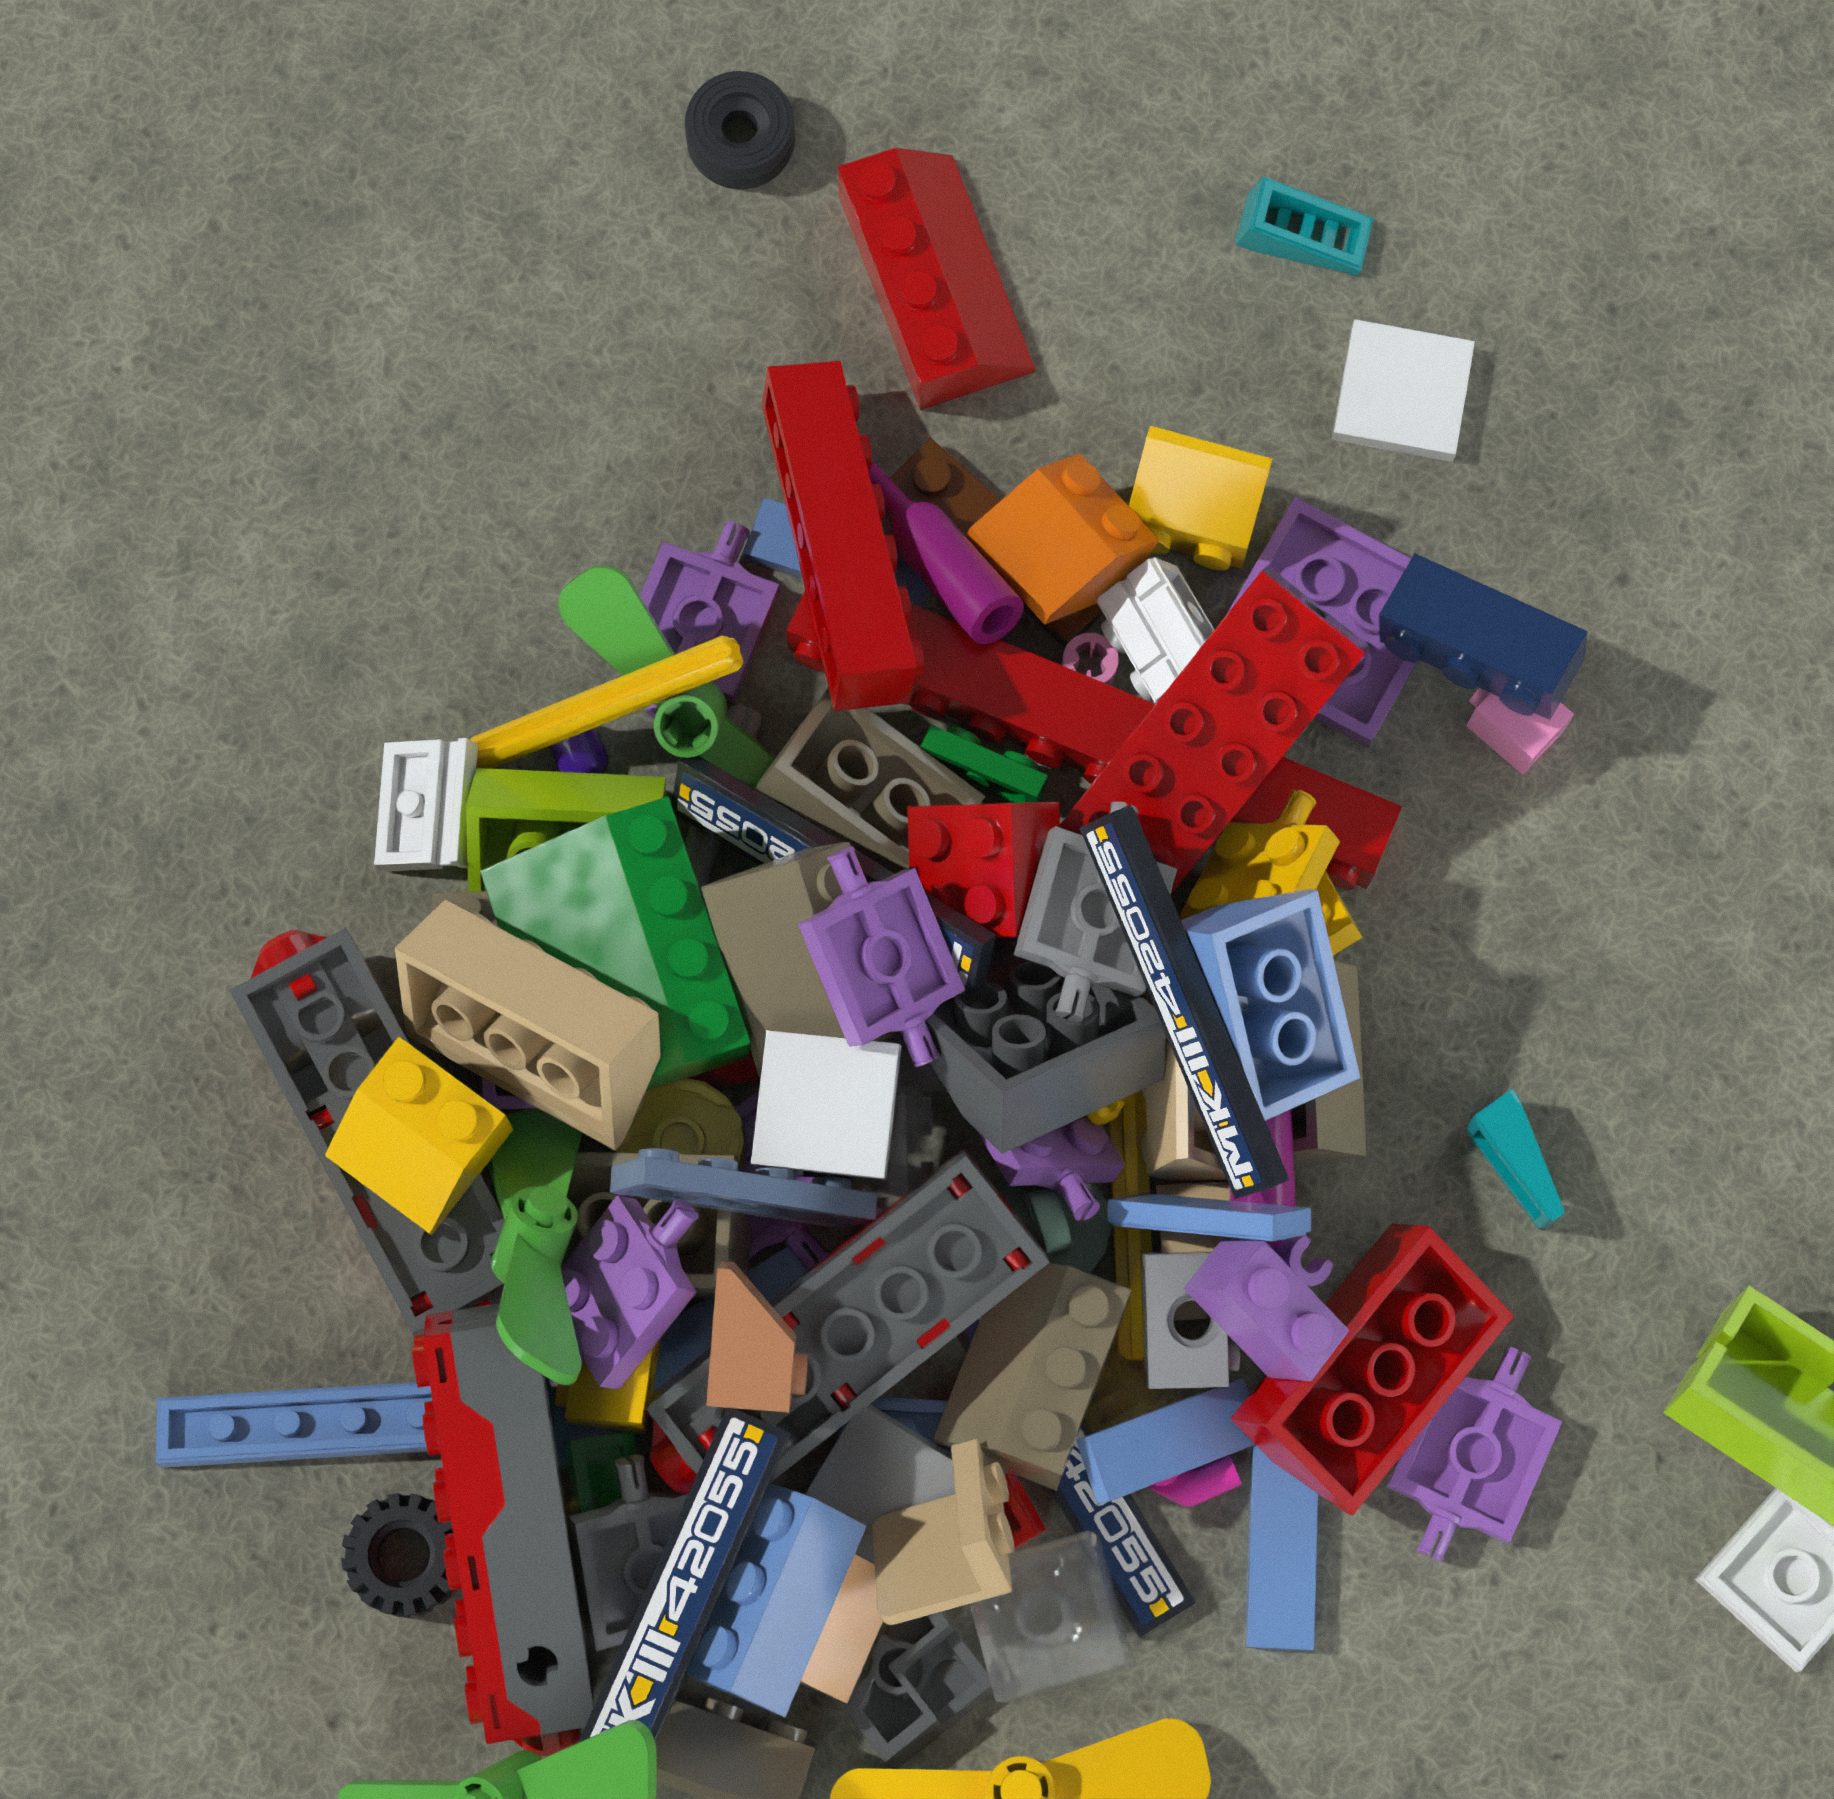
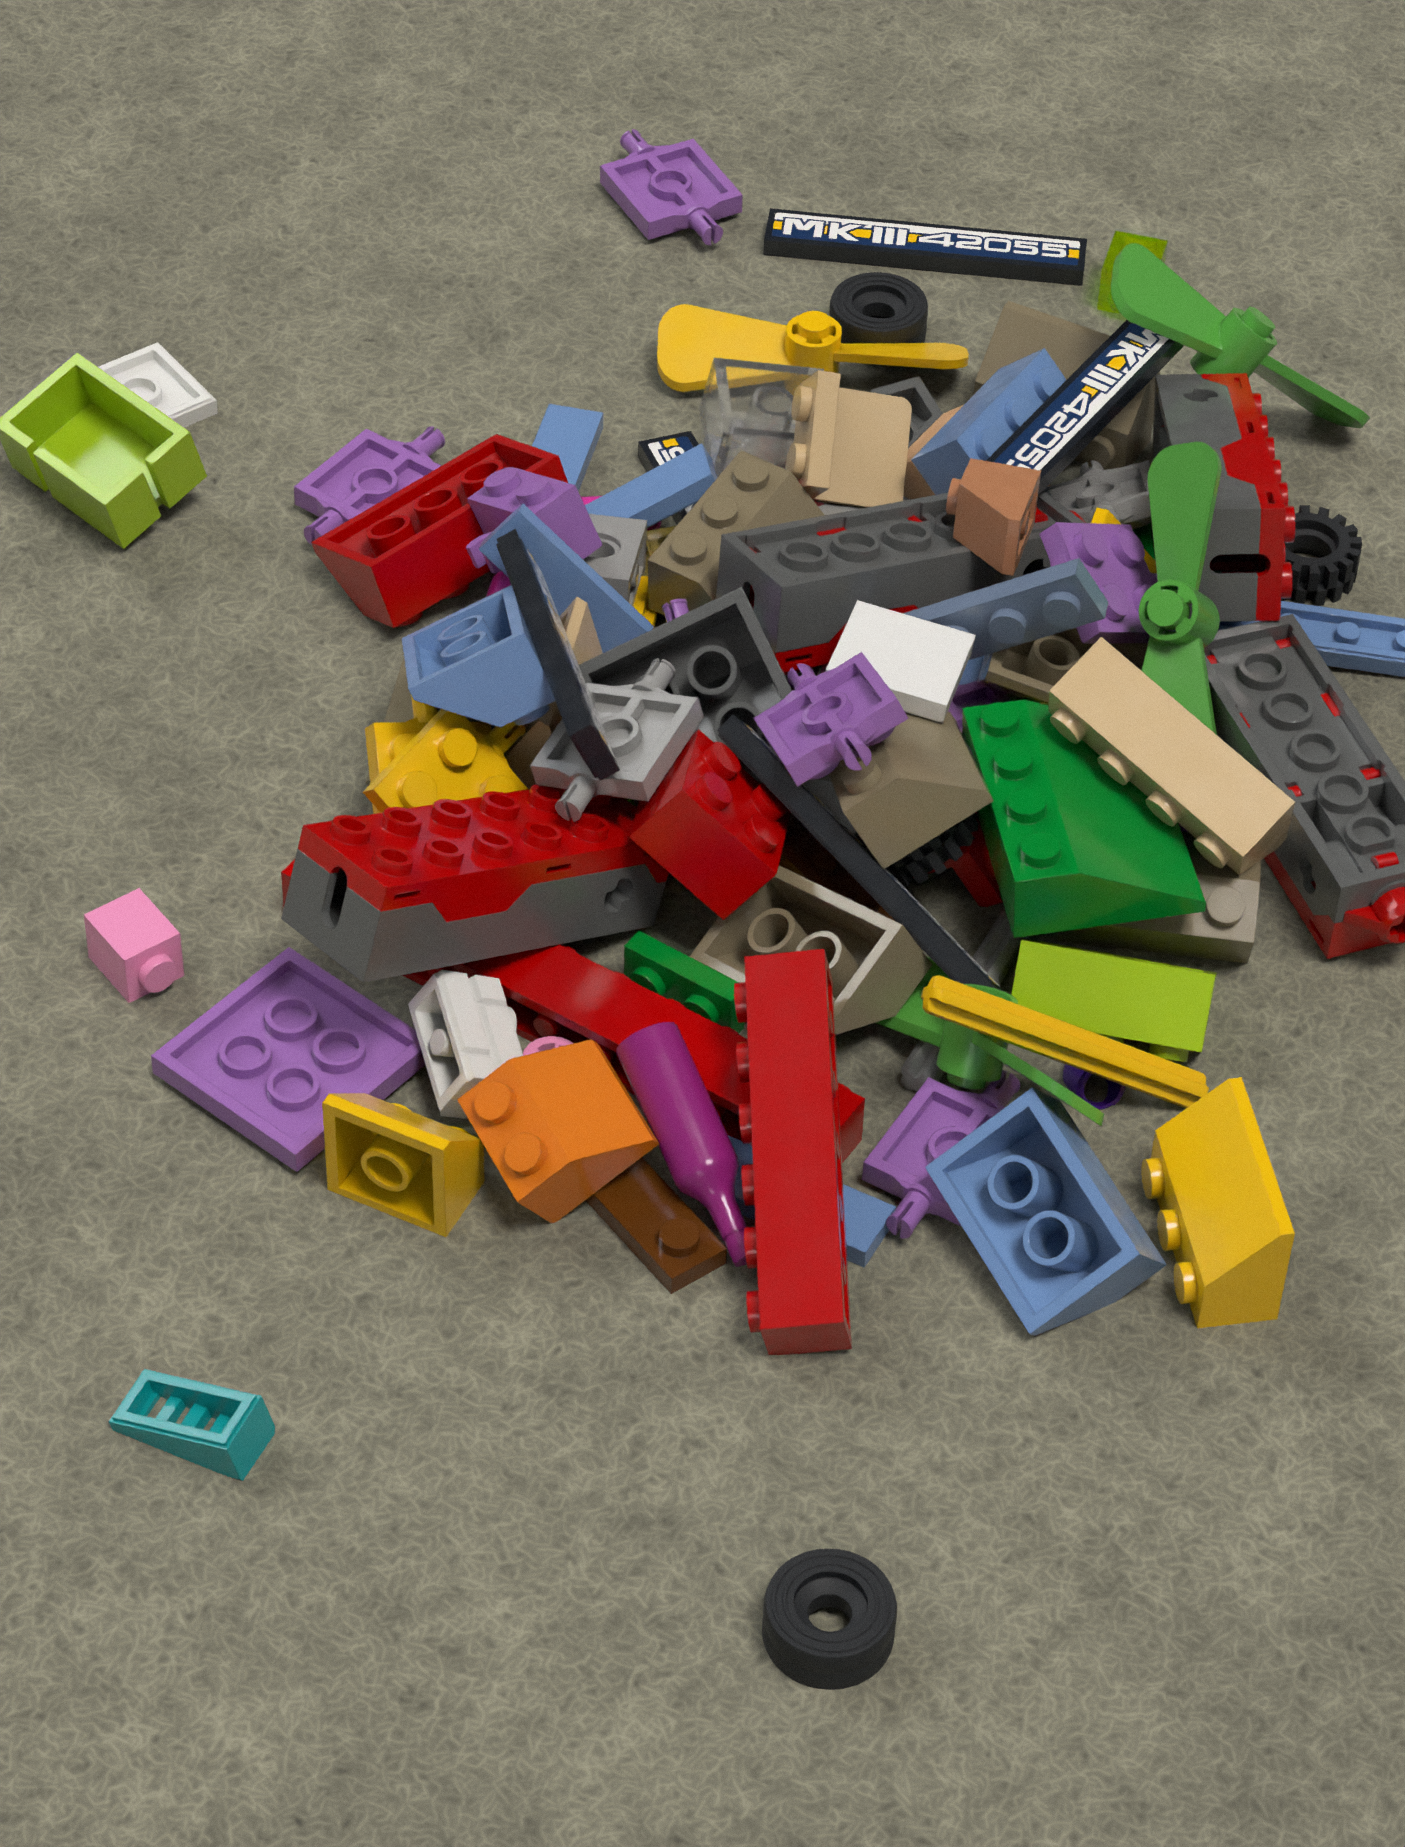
camera: 170 degrees left, 30 degrees down
(417, 1135) = (1272, 716): yellow slope -> none
(424, 804) = (1256, 1037): white plate -> none
(450, 572) = (1220, 1209): none -> yellow slope
(597, 510) = (1044, 1214): none -> medium blue slope
(932, 274) = (632, 1430): red slope -> none
(1403, 390) = (139, 1253): white tile -> none
(1481, 637) = (155, 963): dark blue brick -> none
(1512, 1150) = (270, 653): teal slope -> none

